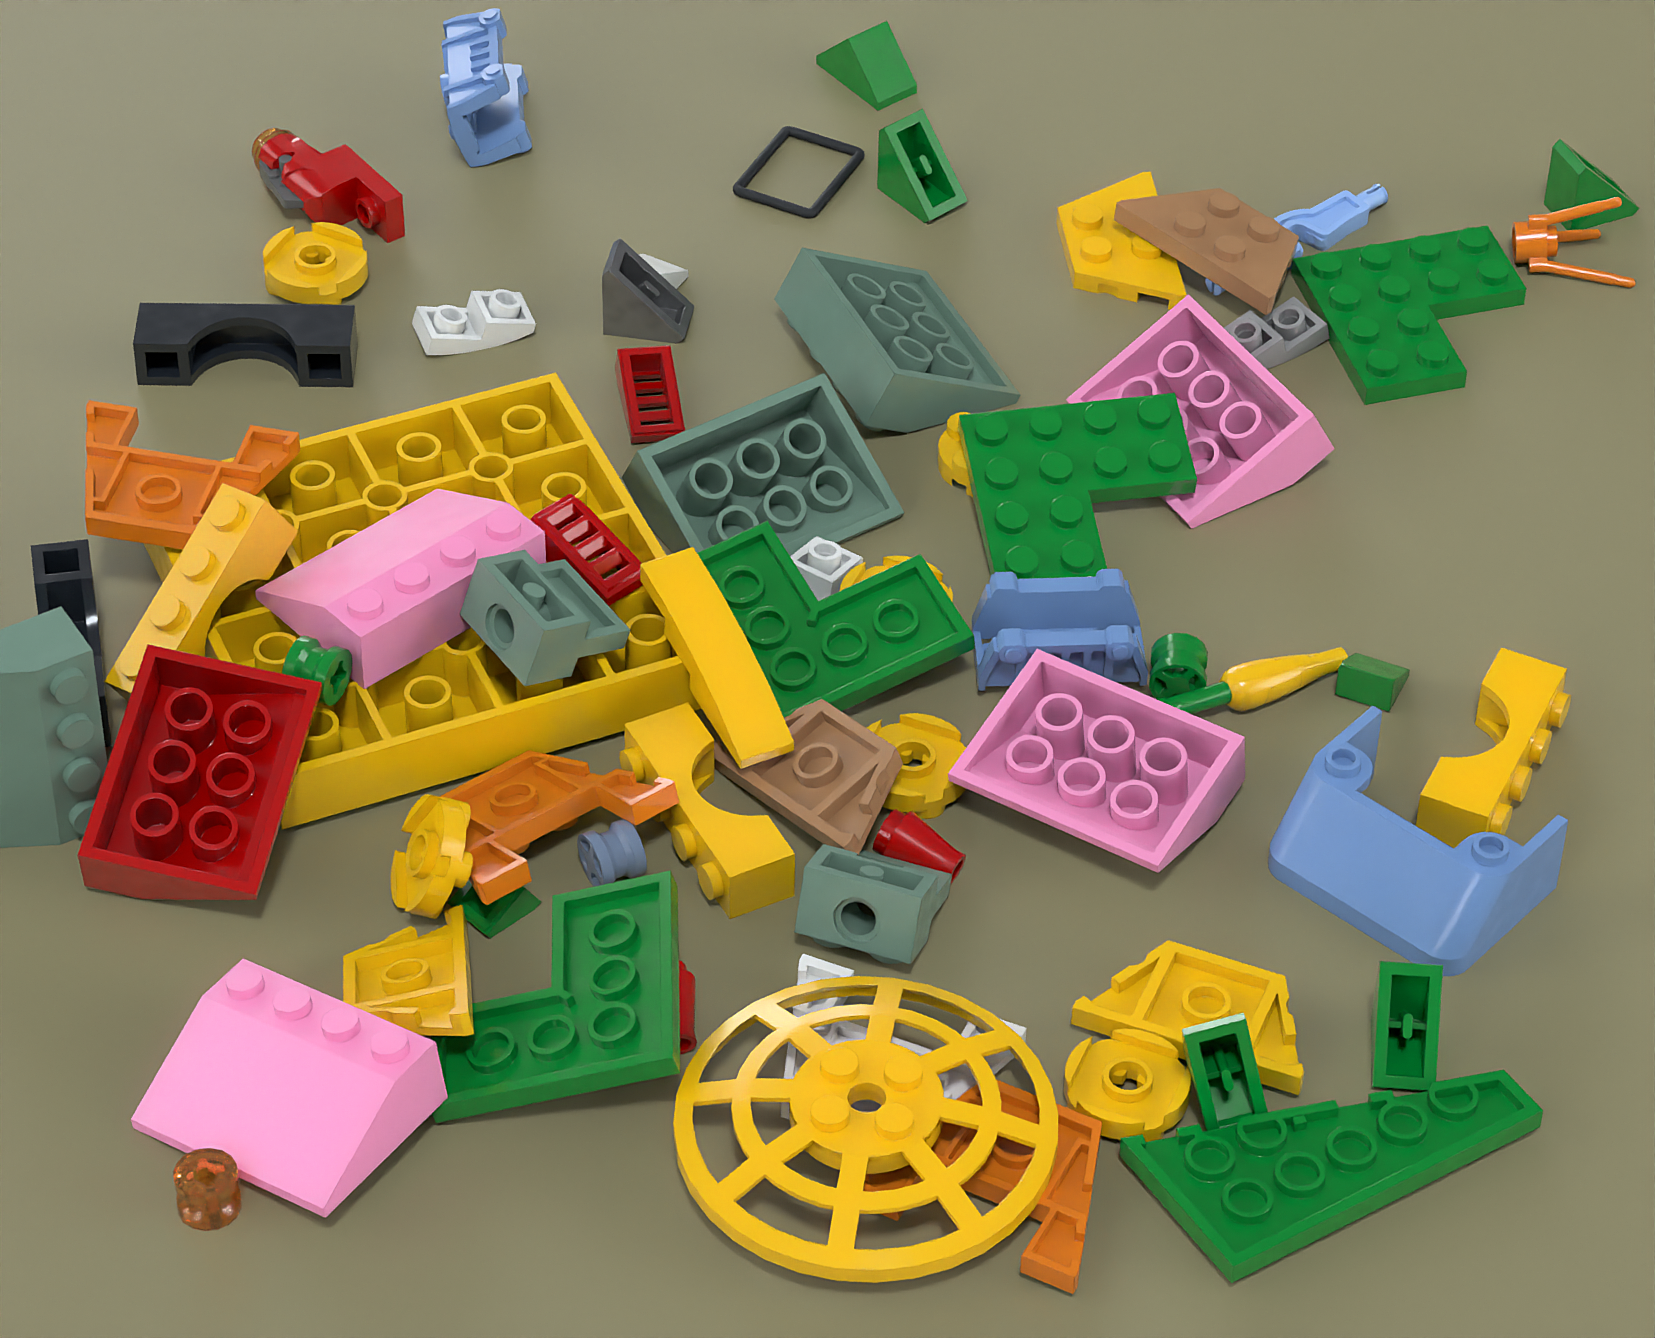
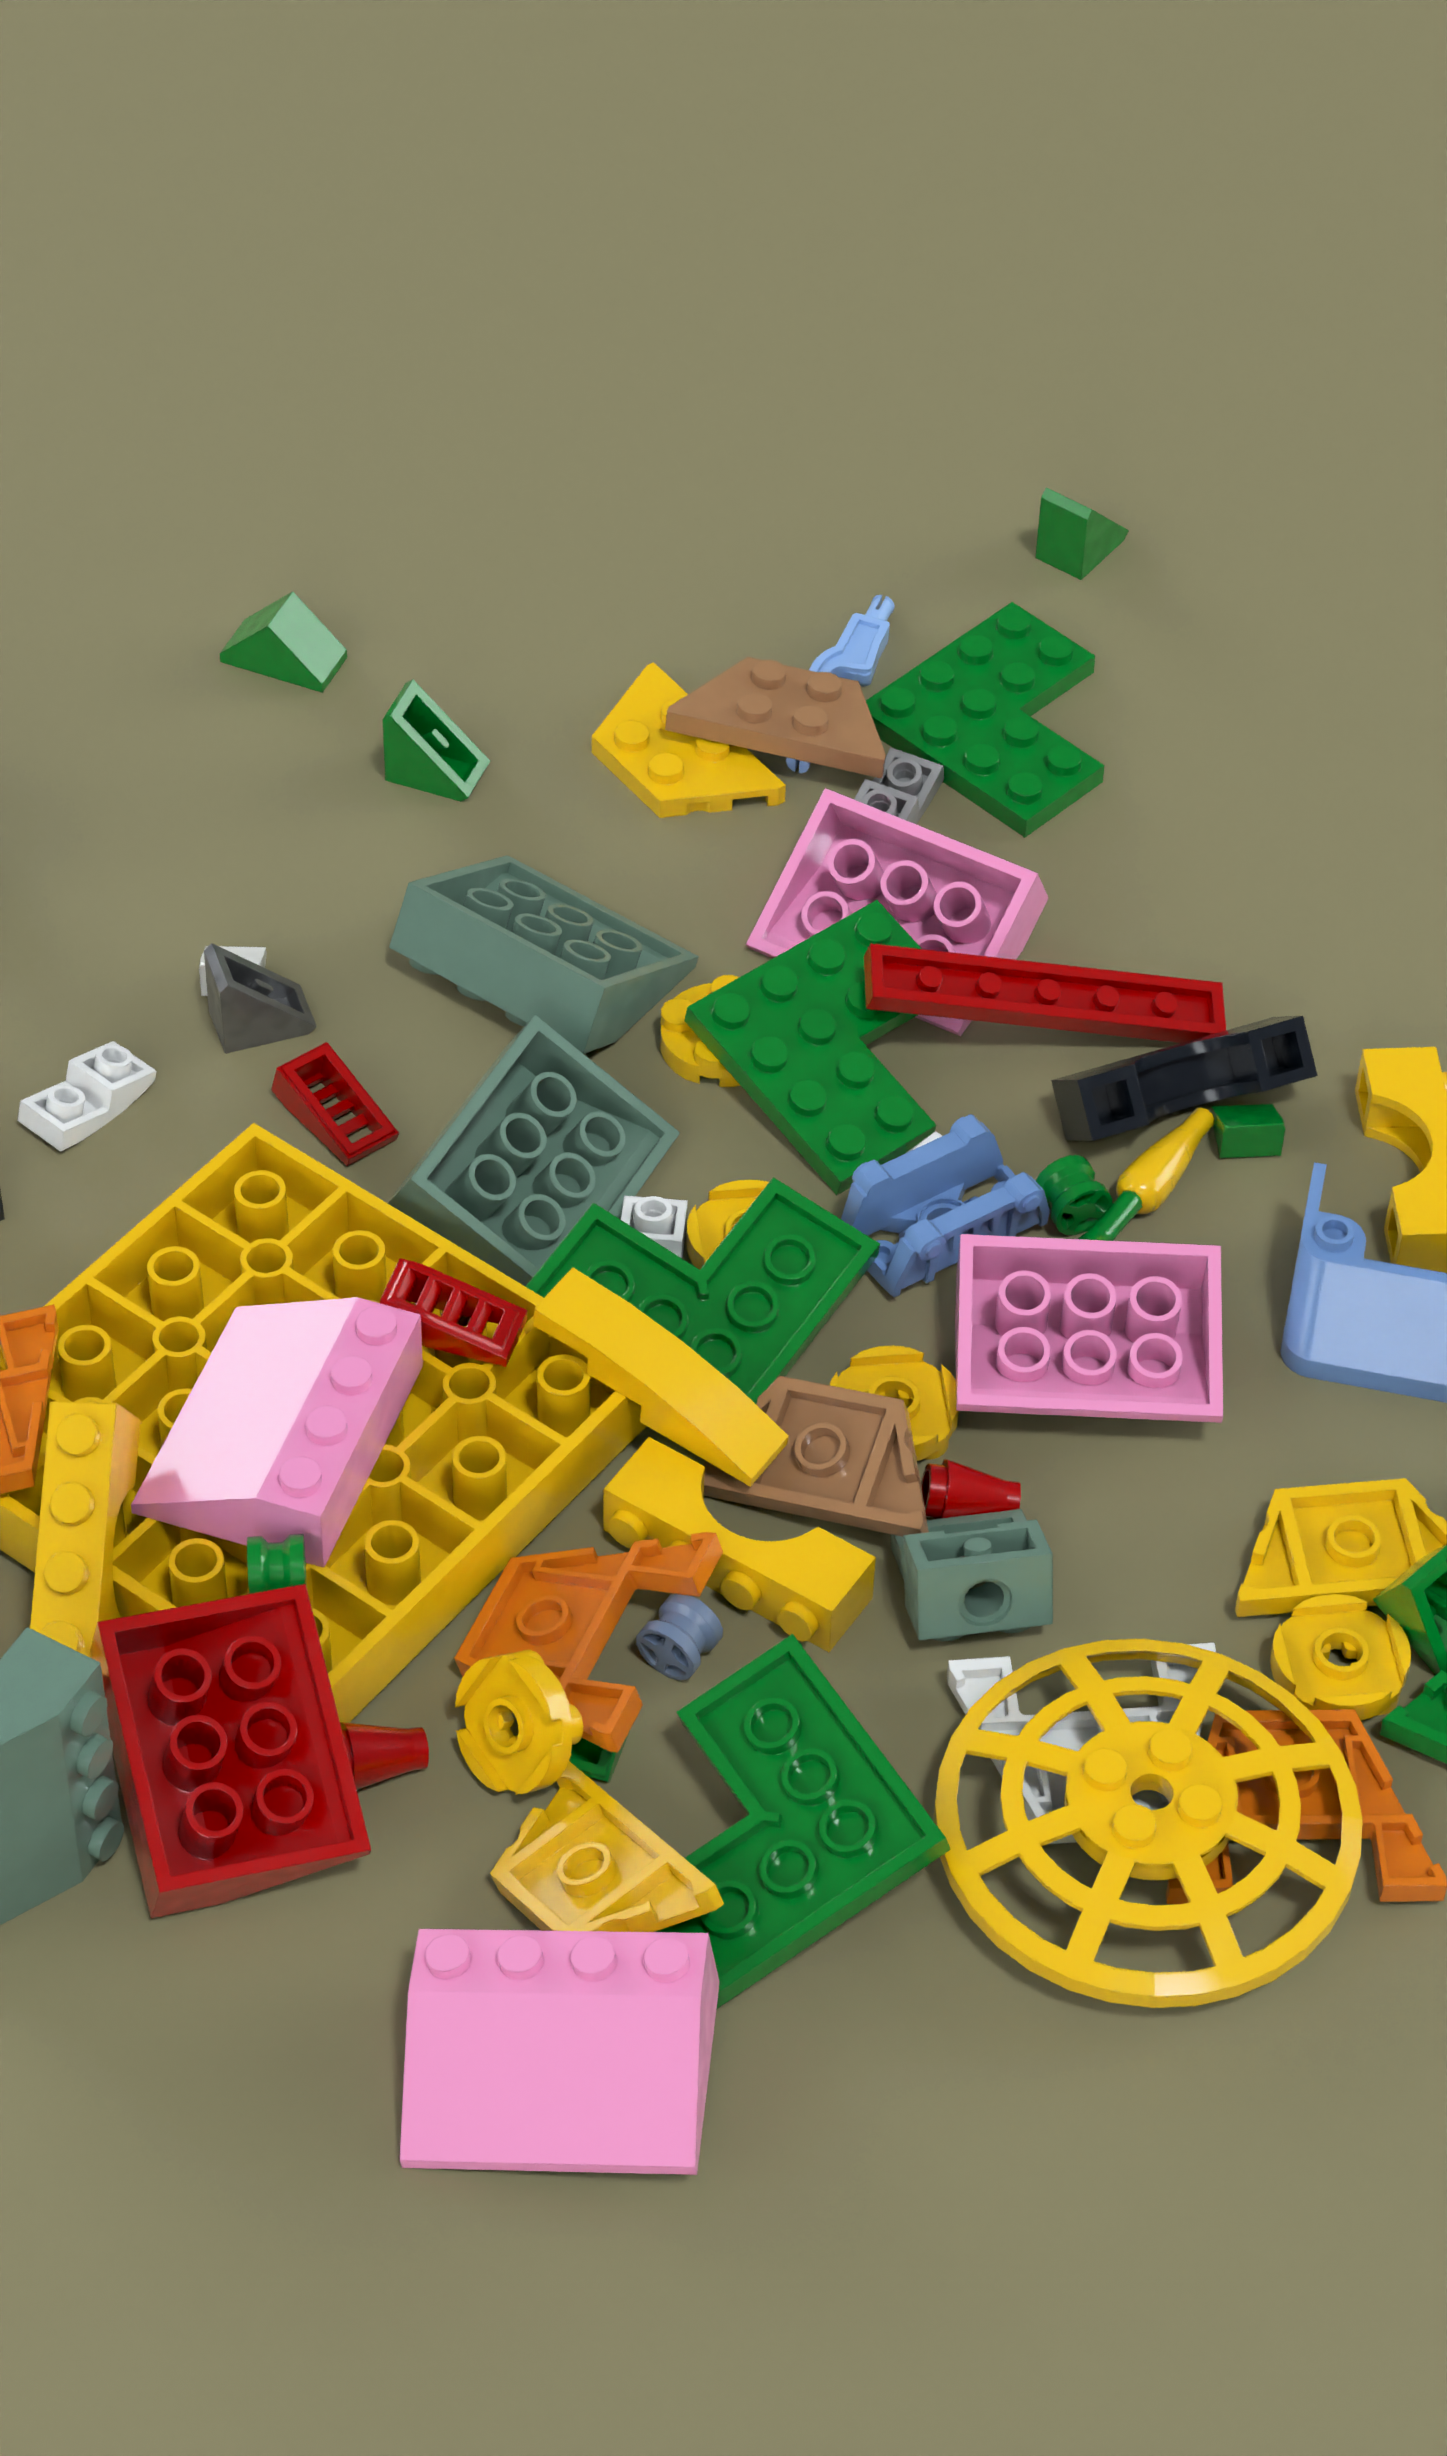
camera: 30 degrees left, 5 degrees up
(206, 1206) = (546, 2221): clear orange wheel -> none
(322, 841) = (383, 1751): none -> red cone
(539, 616) = (466, 1412): sand green brick -> none
(856, 153) = (295, 835): black piece -> none
(1263, 513) = (1041, 994): none -> red plate
(1336, 616) = (1183, 1076): none -> black arch
(1536, 241) = (1073, 598): orange plant -> none

